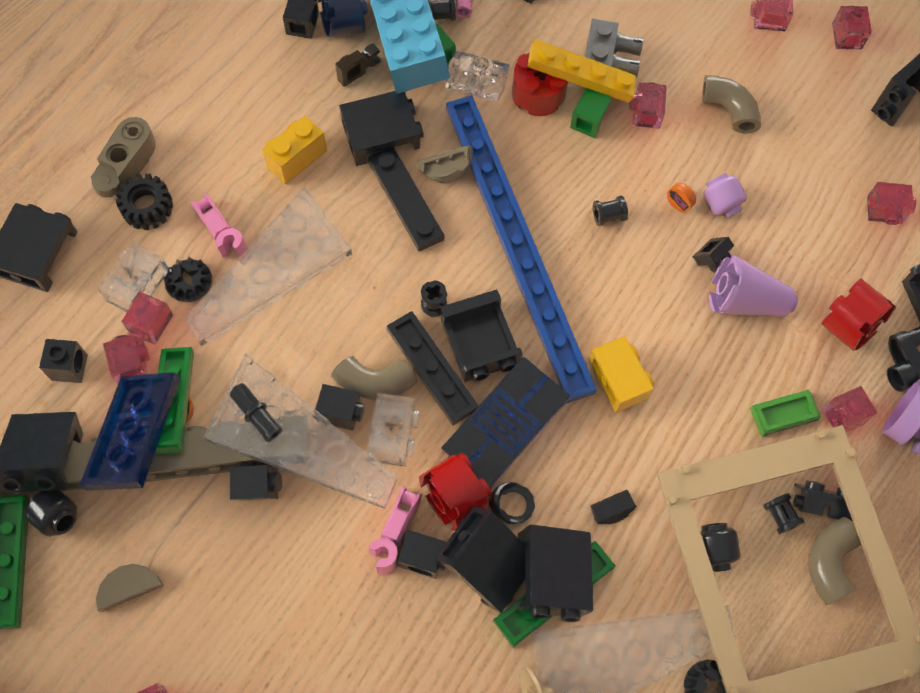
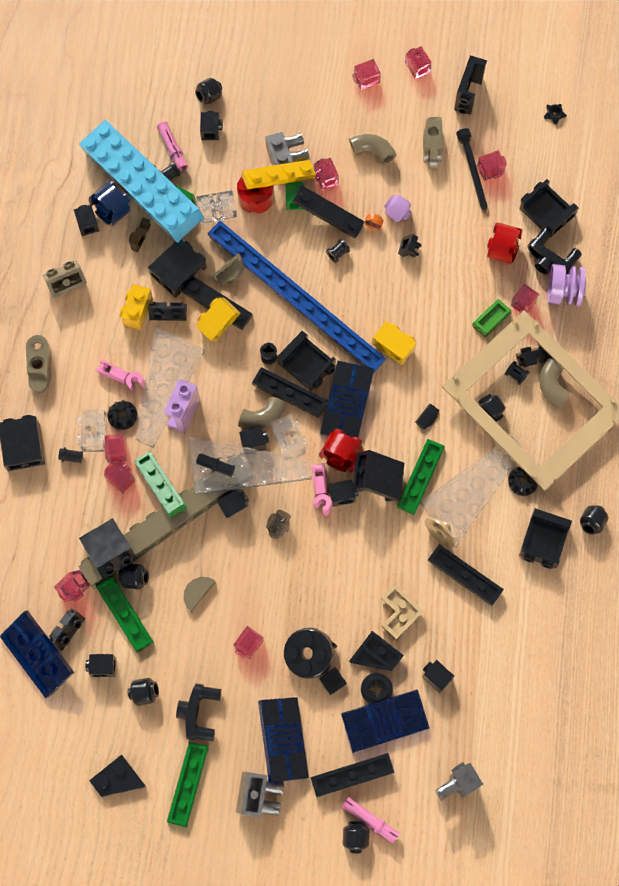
camera: 25 degrees left, 5 degrees up
(63, 360) = (85, 495): black brick -> none
(78, 292) = (70, 455): none -> black pin
(130, 432) = (153, 510): clear blue tile -> none
(137, 189) = (58, 377): black tyre -> none
(224, 69) = (64, 278): none -> dark tan brick
(267, 305) = (182, 405): none -> lavender panel
(302, 549) = (278, 524): none -> clear smoke rock
(327, 174) = (162, 312): none -> black hinge
(389, 216) = (217, 318): none -> yellow brick
(503, 489) = (365, 437): black piece -> none
(557, 573) = (417, 464): black panel -> none
(624, 152) = (328, 211): none -> black plate
(749, 291) = (439, 259): lavender cone -> none
(821, 133) = (433, 142): none -> dark tan piece
(868, 149) = (463, 137): none -> black piece

